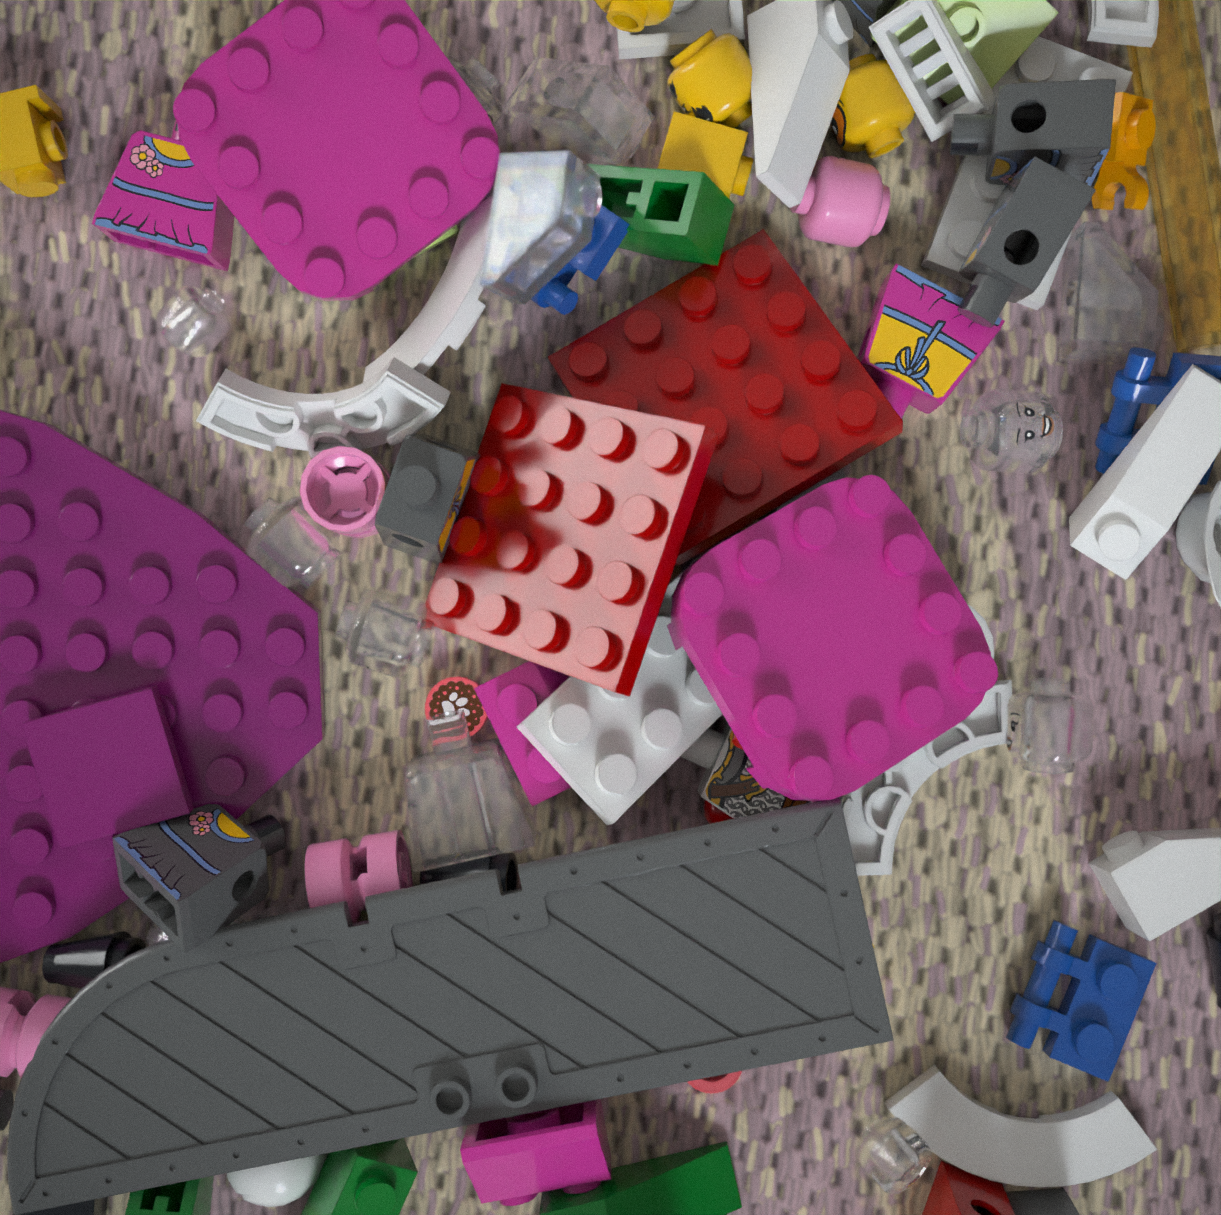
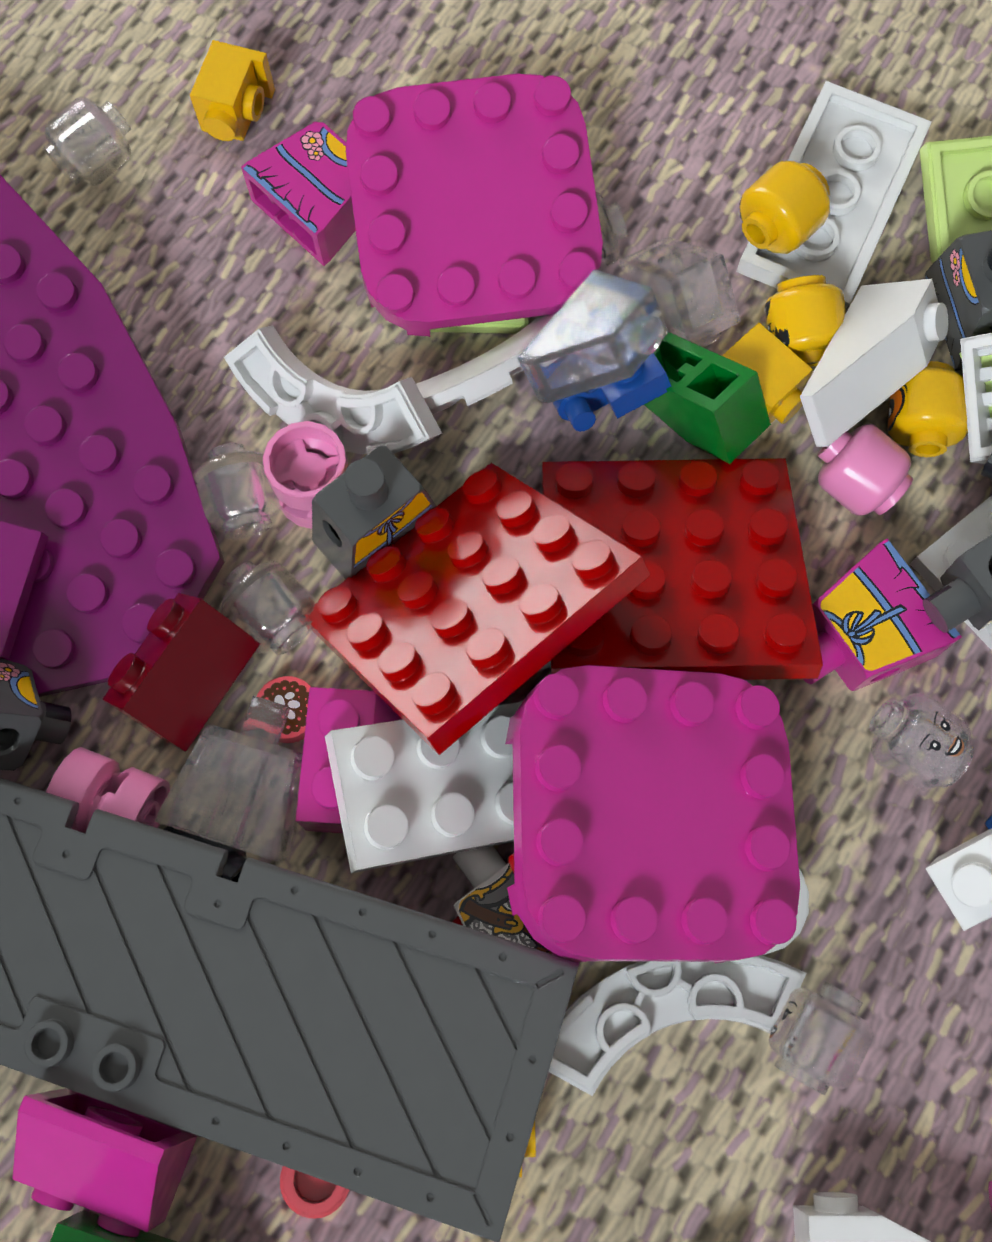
camera: 30 degrees right, 15 degrees down
(194, 320) = (273, 284): clear piece -> none
(349, 734) = (180, 669): none -> dark red brick

